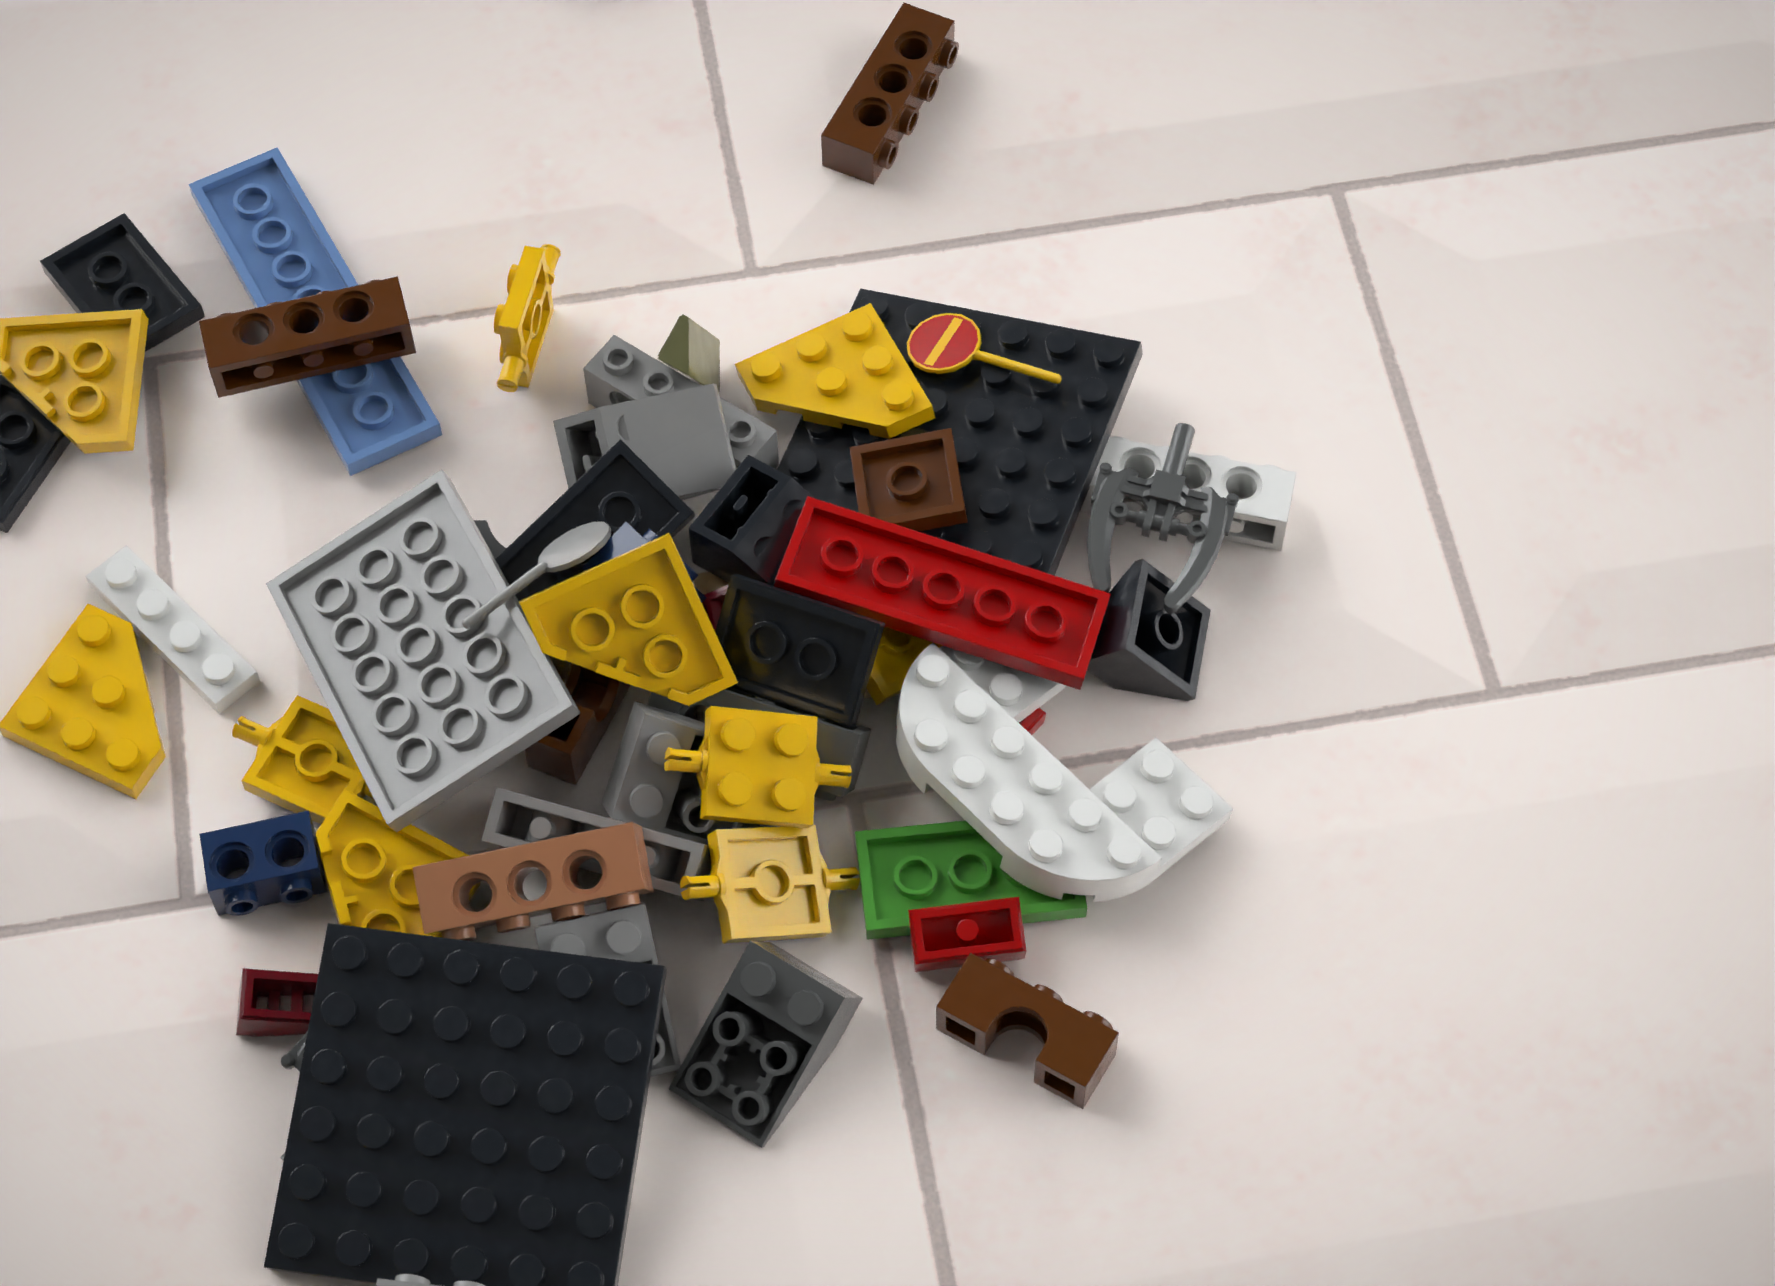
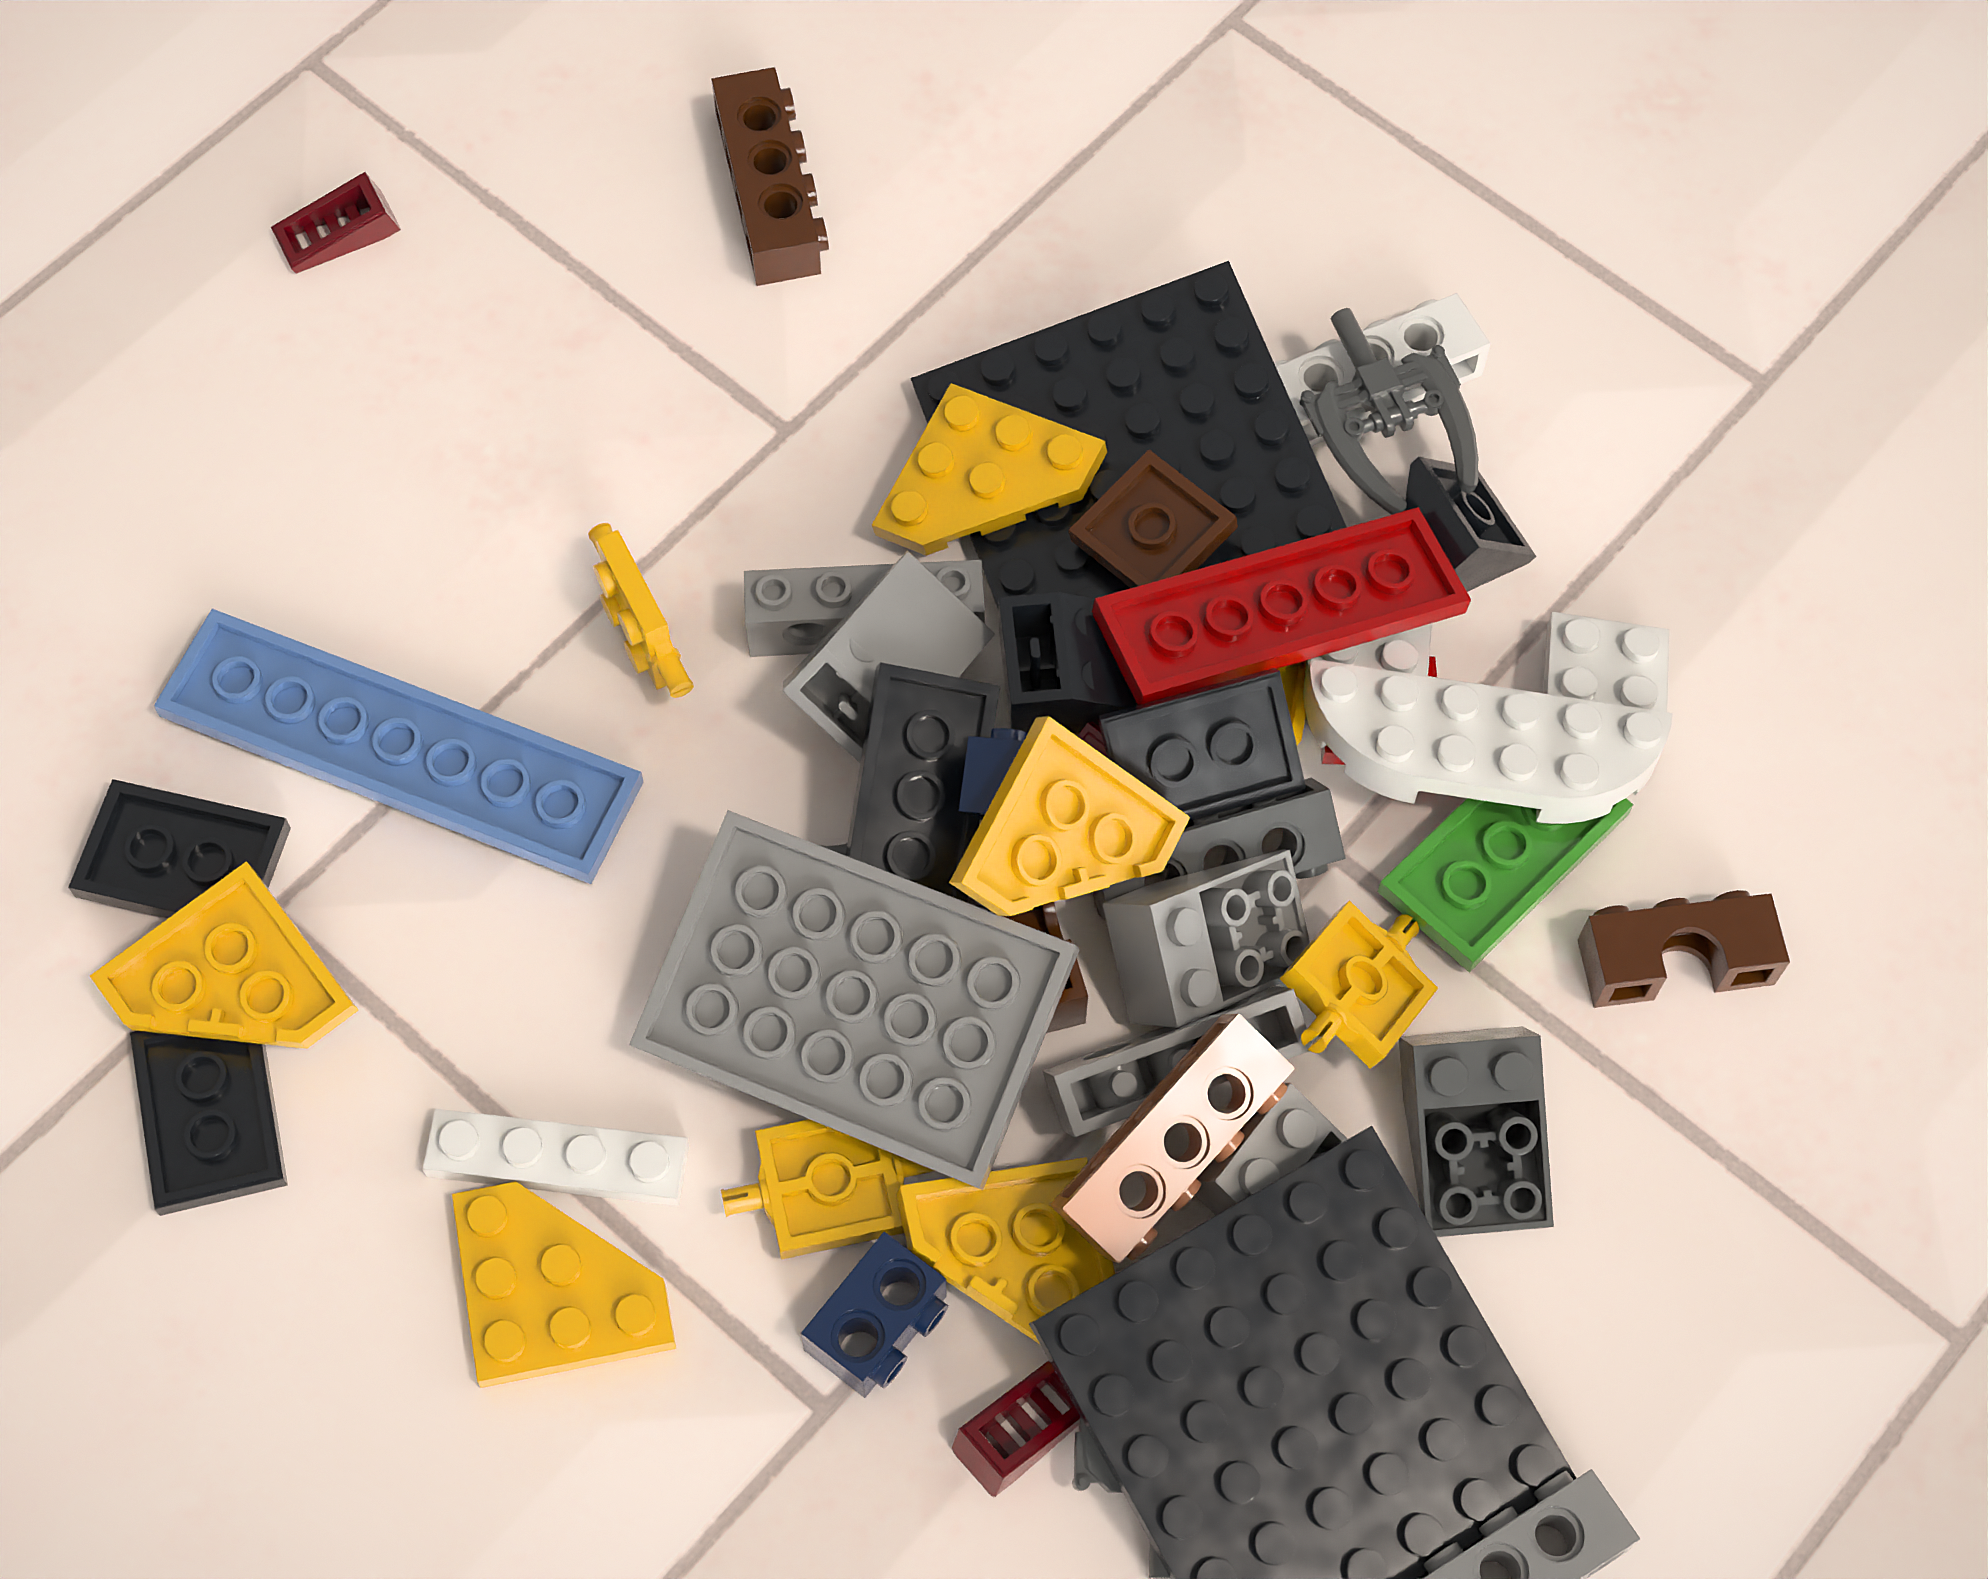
camera: 40 degrees left, 5 degrees up
(307, 336) = (436, 805): reddish brown brick -> none
(559, 555) = (923, 807): light grey piece -> none
(692, 352) = (834, 542): olive slope -> none
(758, 767) = (1278, 883): yellow plate -> none
(949, 933) = (1559, 902): red slope -> none
(952, 342) = (1058, 373): piece -> none

